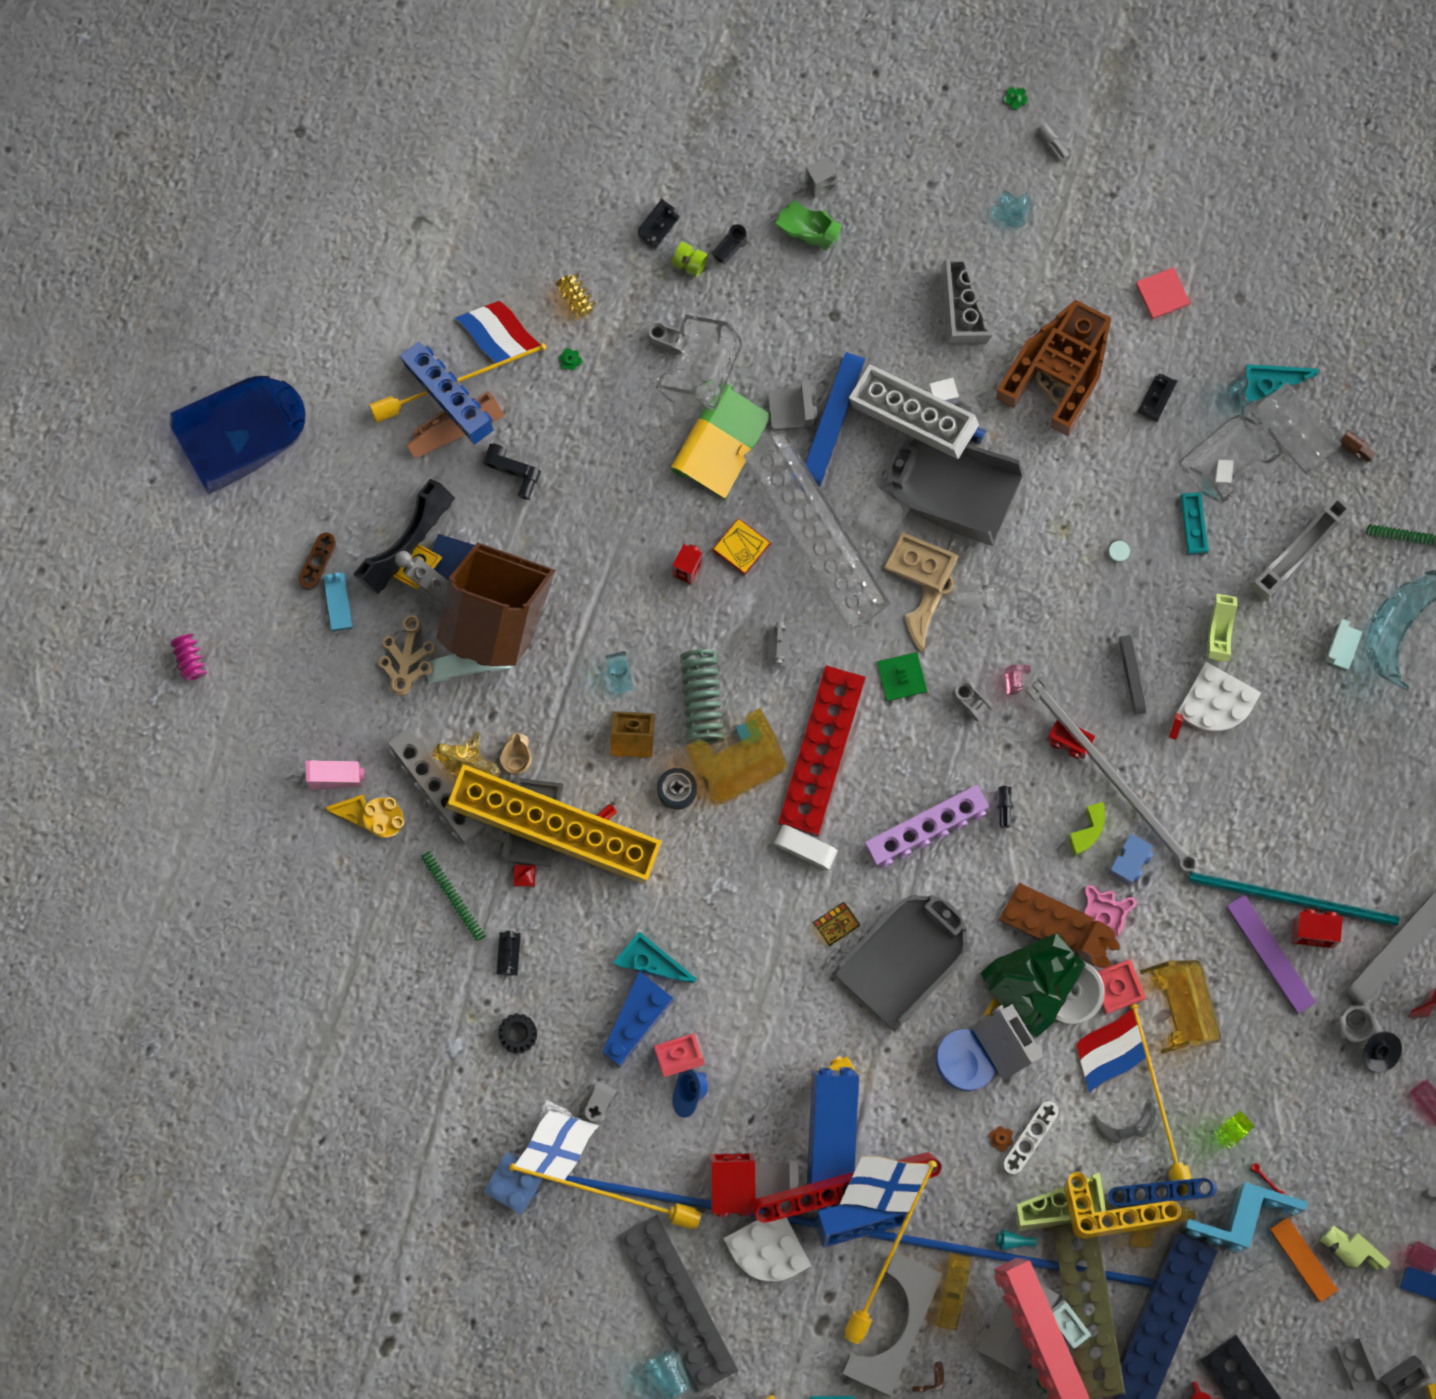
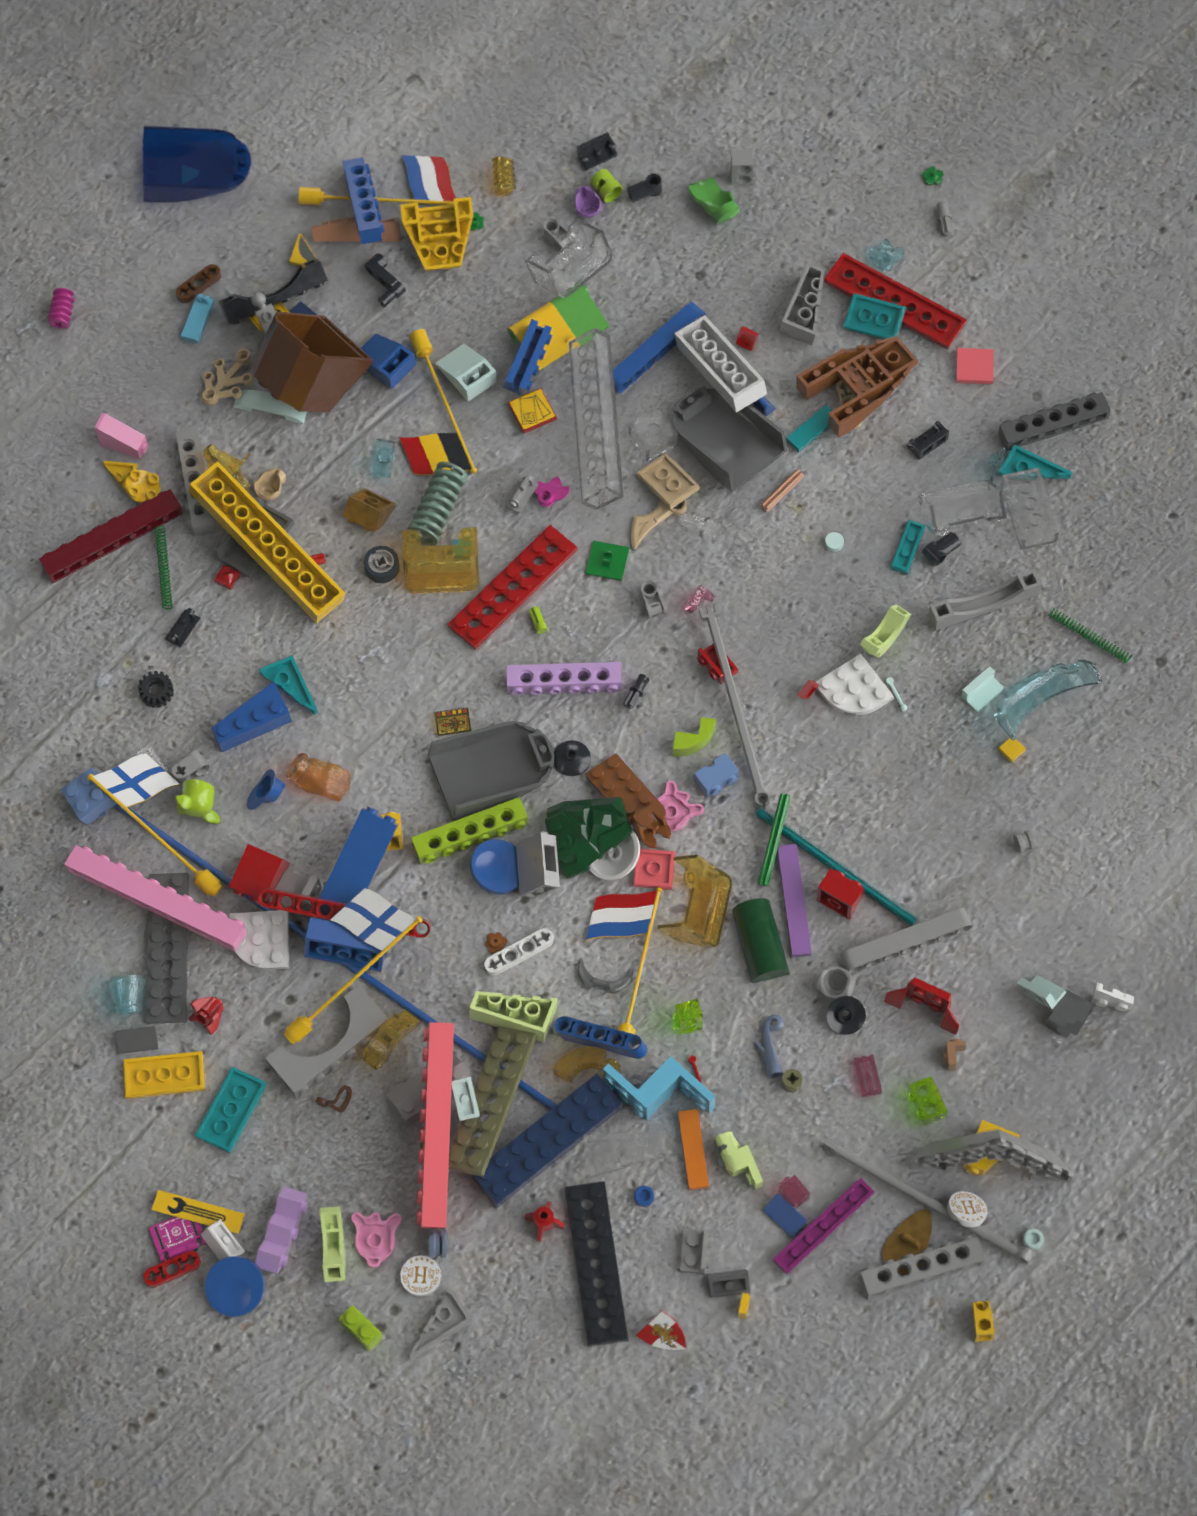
camera: 30 degrees right, 10 degrees down
(380, 888) = (111, 536): none -> dark red brick
(409, 478) = (301, 252): none -> tile
(544, 391) = (439, 232): none -> yellow wedge
(566, 555) = (390, 359): none -> blue slope
(628, 1135) = (197, 800): none -> lime piece
(643, 1260) = (156, 898): none -> bright pink brick
(652, 533) = (467, 371): none -> light aqua slope
(665, 636) = (429, 450): none -> flag
(679, 287) = (587, 202): none -> medium lavender hair
(679, 1055) = (271, 759): coral tile -> none
(687, 563) = (480, 401): red brick -> none
(711, 493) = (527, 358): none -> blue brick
(736, 1049) = (319, 777): none -> clear orange hair
(758, 1353) = (207, 1011): none -> red brick
(792, 407) = (628, 325): light grey bracket -> none
(805, 847) = (458, 651): white beam -> none
(808, 626) = (551, 491): none -> dark pink plate
(866, 775) = (538, 620): none -> lime piece
(921, 367) = (747, 338): none -> red tile
(945, 390) = (757, 361): white brick -> none
(950, 991) = (476, 822): none -> lime brick
(972, 917) = (575, 765): none -> black dish
(1010, 1240) = (462, 1023): teal cone -> none
(1035, 436) = (810, 429): none -> teal tile
(1038, 286) = (874, 317): none -> teal tile
(1039, 519) = (781, 490): none -> nougat axle
(1058, 248) = (907, 298): none -> red plate
(1115, 1217) = (551, 1033): yellow beam -> none
(1132, 674) = (794, 637): dark grey beam -> none
(1222, 901) = (774, 839): none -> green axle
(1224, 471) = (952, 516): white sticker -> none
(1227, 514) = (937, 551): none -> black piece
(1248, 677) = (889, 681): none -> light aqua hinge
(1260, 1013) = (760, 940): none -> dark green brick
(1280, 1330) = (644, 1196): none -> blue tile
(1305, 281) = (1047, 428): none -> dark grey brick
(1322, 1121) = (768, 1051): none -> sand blue plant
(1357, 446) = (1073, 544): reddish brown hinge -> none
(1359, 1145) = (790, 1084): none -> olive wheel
(1401, 696) = (1012, 749): none -> yellow tile

